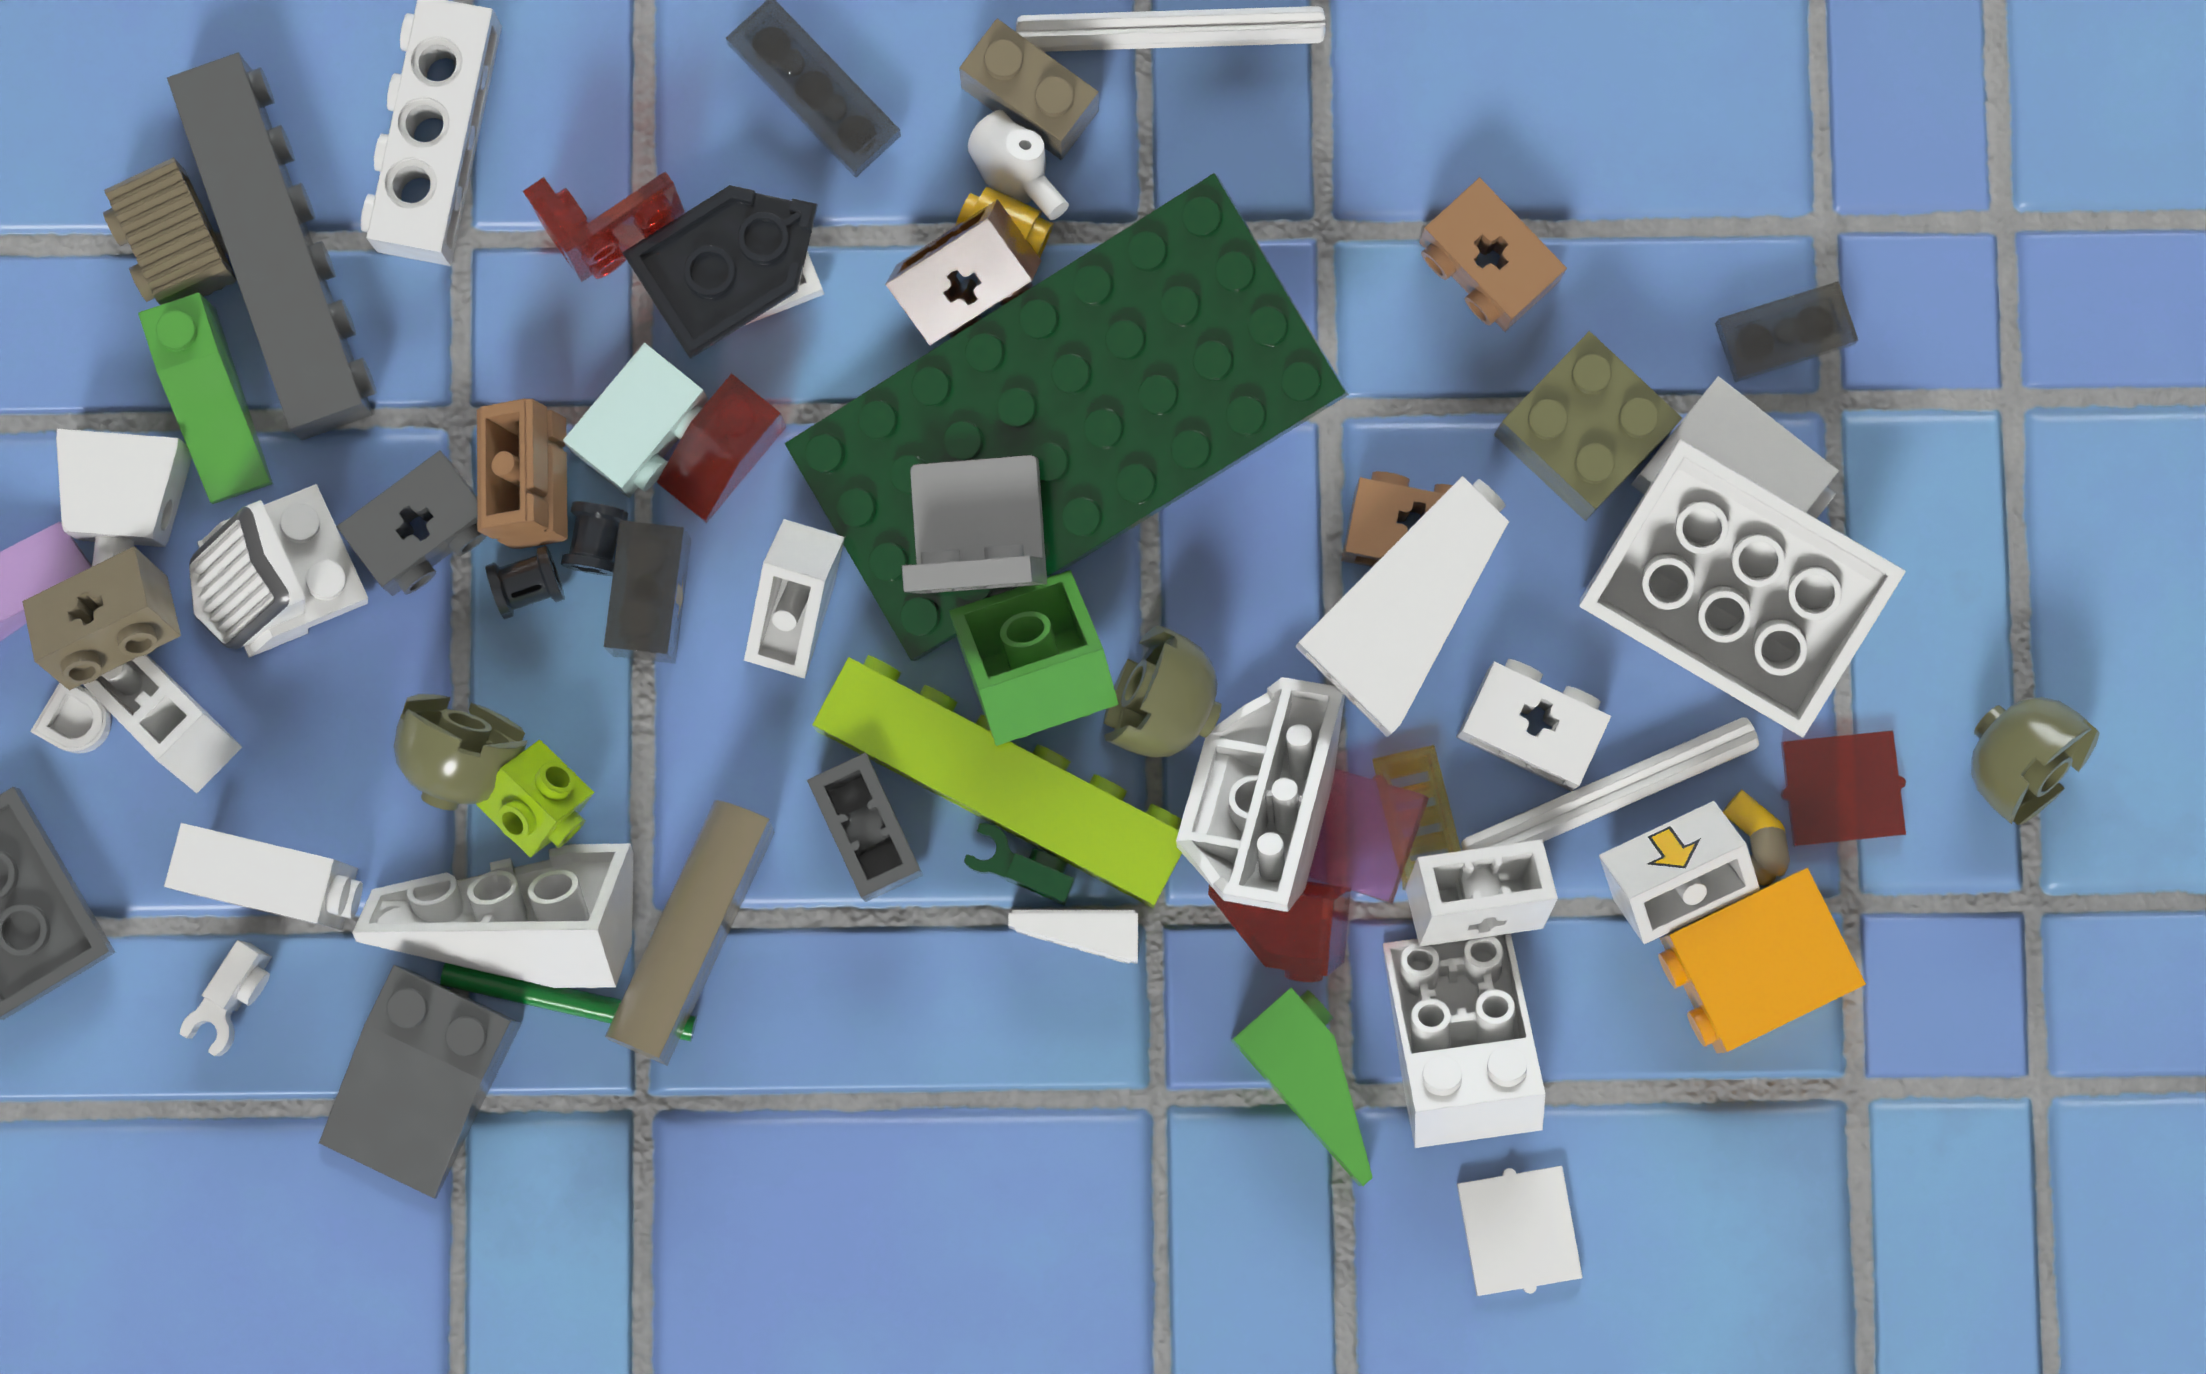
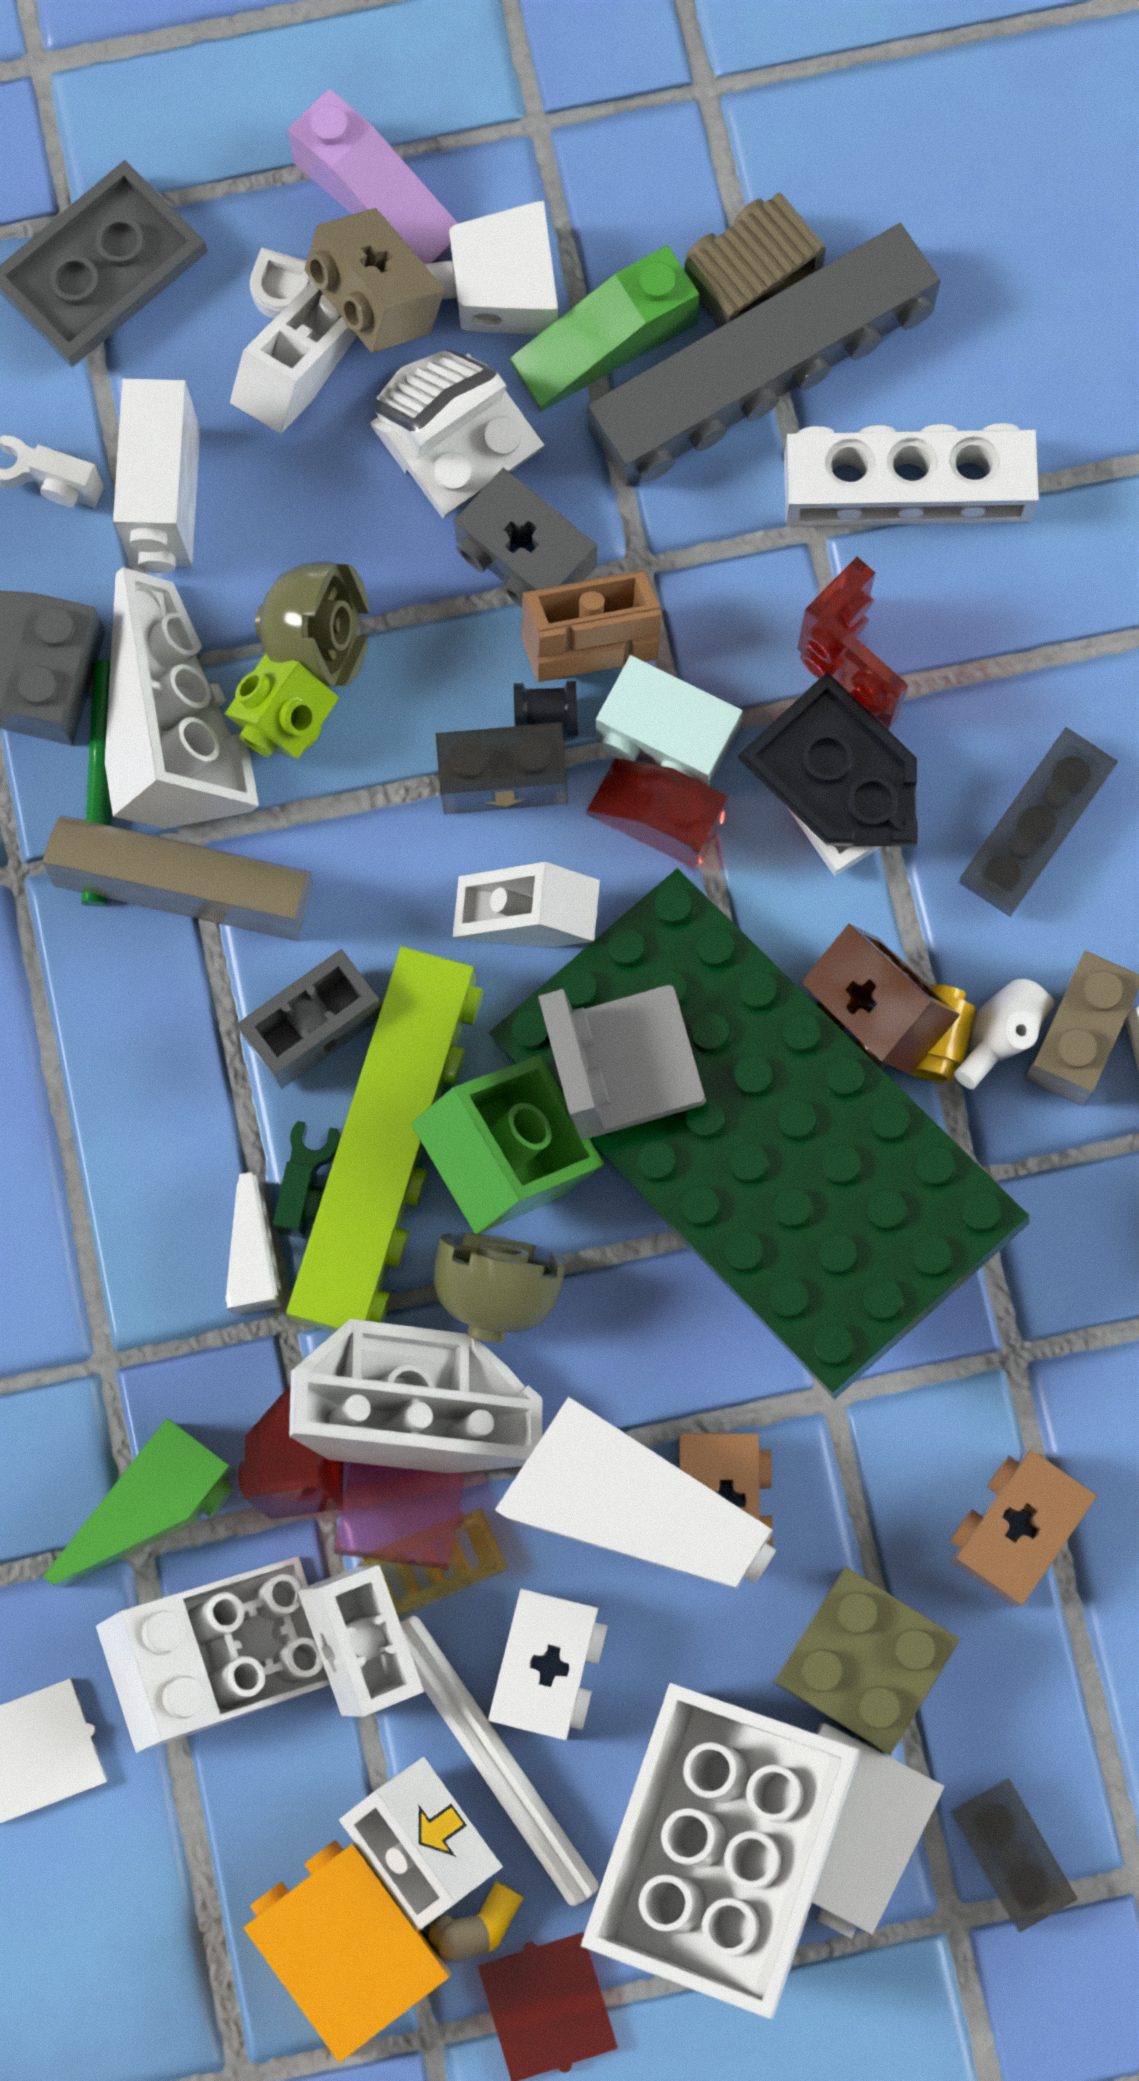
camera: 85 degrees right, 5 degrees down
(524, 582) = (490, 654): black bush -> none

